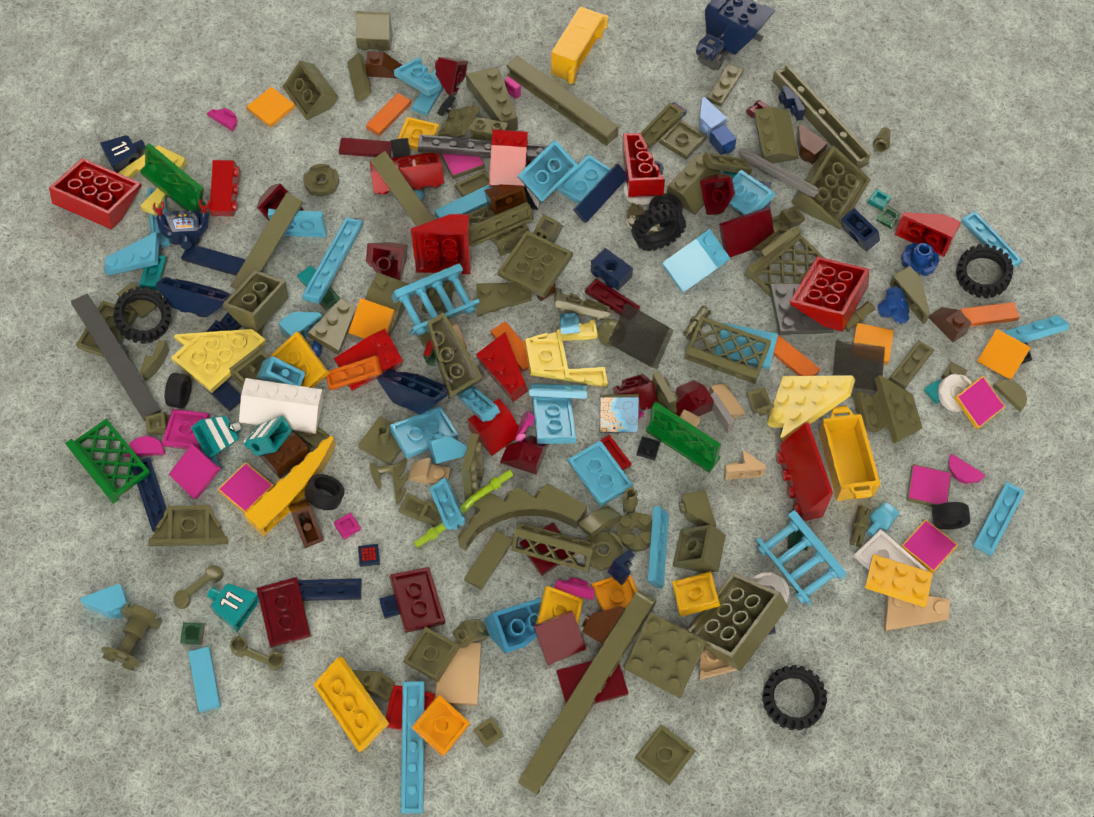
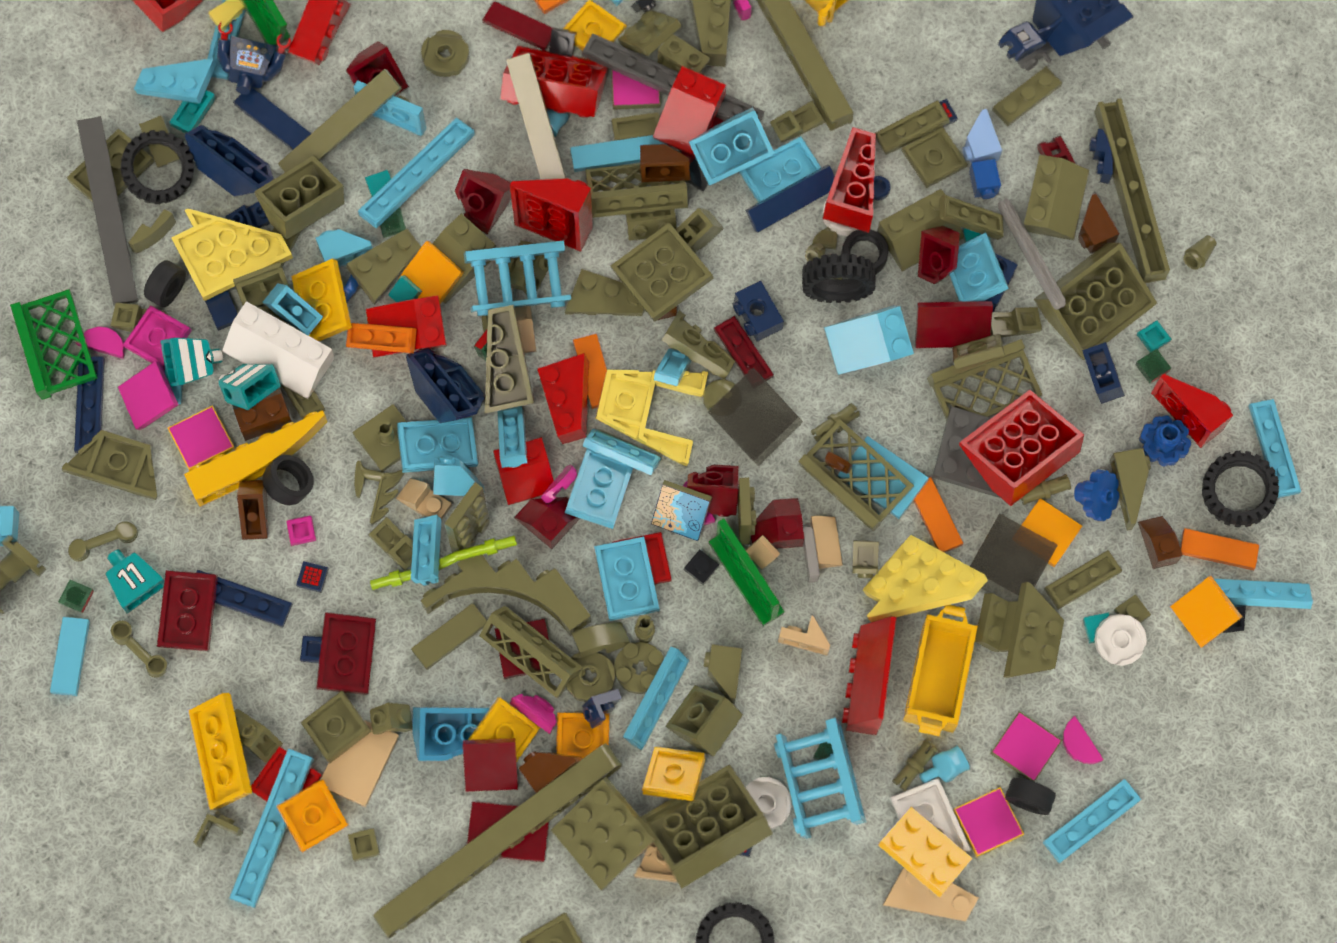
camera: 20 degrees right, 10 degrees up
(355, 337) = (404, 290): none -> teal tile
(372, 757) = (222, 822): none -> olive bracket
(583, 146) = (798, 122): none -> olive slope
(713, 343) = (838, 463): none -> reddish brown tile
(979, 402) = (1143, 663): dark pink tile -> none
(1012, 392) = (1195, 666): olive tile -> none

